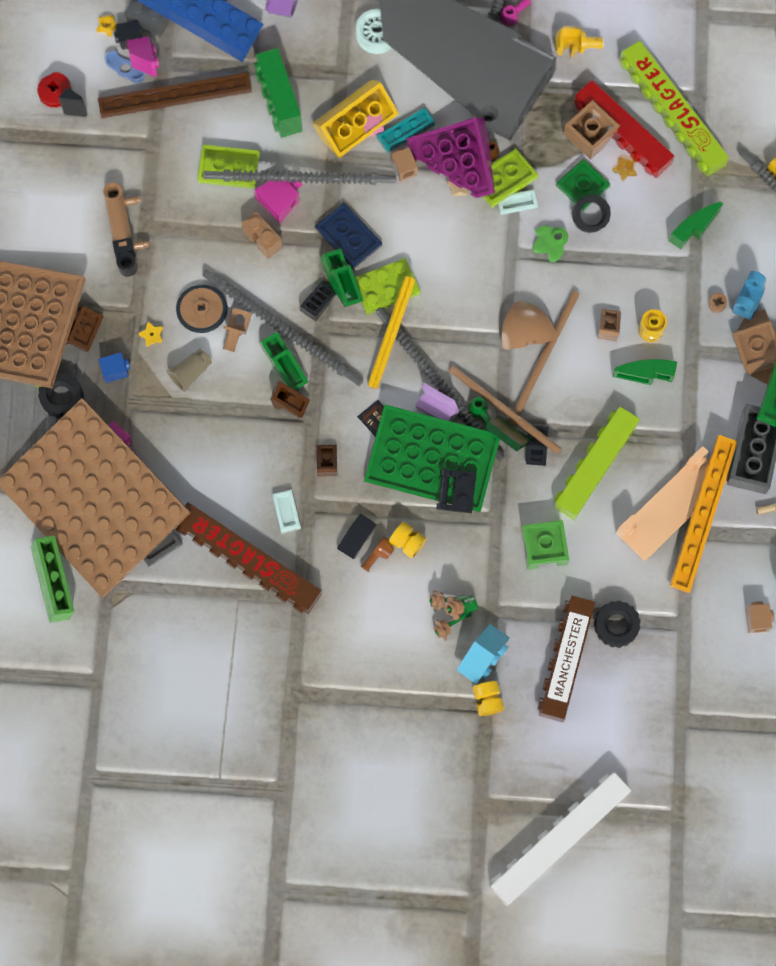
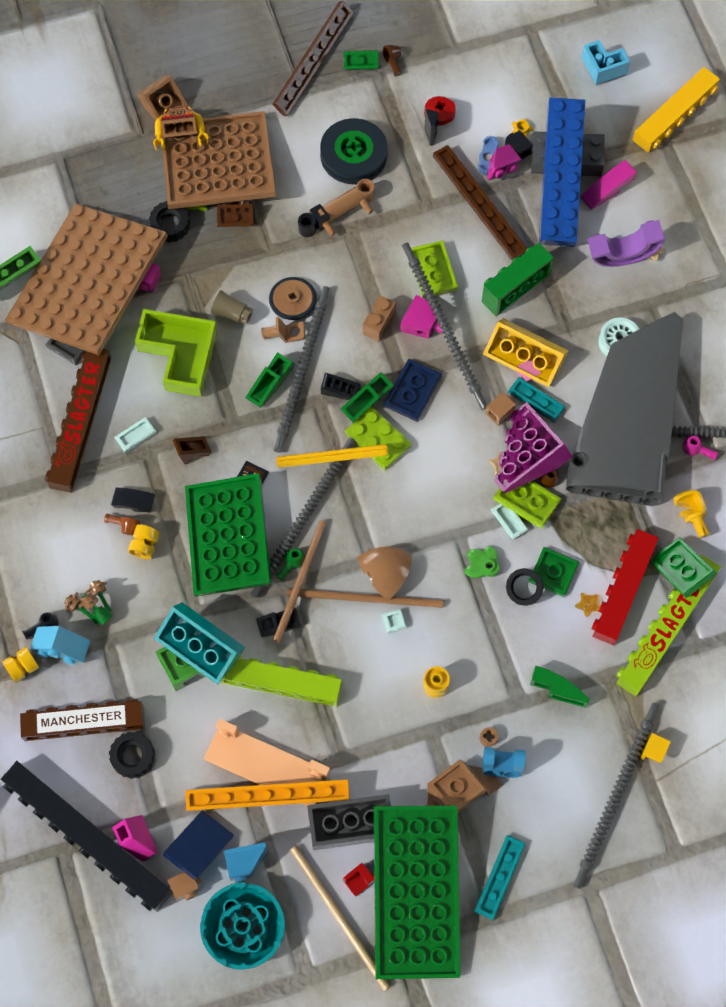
camera: 70 degrees right, 5 degrees down
(78, 199) = (353, 135): none -> black wheel
(114, 367) = (209, 250): blue brick -> none
(156, 338) = (253, 273): yellow plate -> none
(214, 423) = (185, 342): none -> lime piece
(288, 399) = (234, 396): reddish brown slope -> none
(437, 404) = (279, 521): lavender panel -> none
(452, 667) = (53, 622): none -> black bar
(463, 491) = (204, 571): black plate -> none
(508, 433) = (273, 588): dark green tile -> none
(539, 518) = (199, 642): none -> teal slope
(575, 342) = (394, 621): none -> light aqua tile
(590, 129) = (608, 555): medium nougat slope -> none
(609, 325) = (422, 642): medium nougat slope -> none
(628, 71) = (683, 567): none -> green tile
(646, 371) = (390, 694): green slope -> none
(679, 692) = (87, 836): none -> black brick
(700, 646) = (135, 837): none -> dark pink slope
(728, 591) = (198, 845): none -> dark blue tile
(758, 555) = (244, 861): none -> dark azure slope

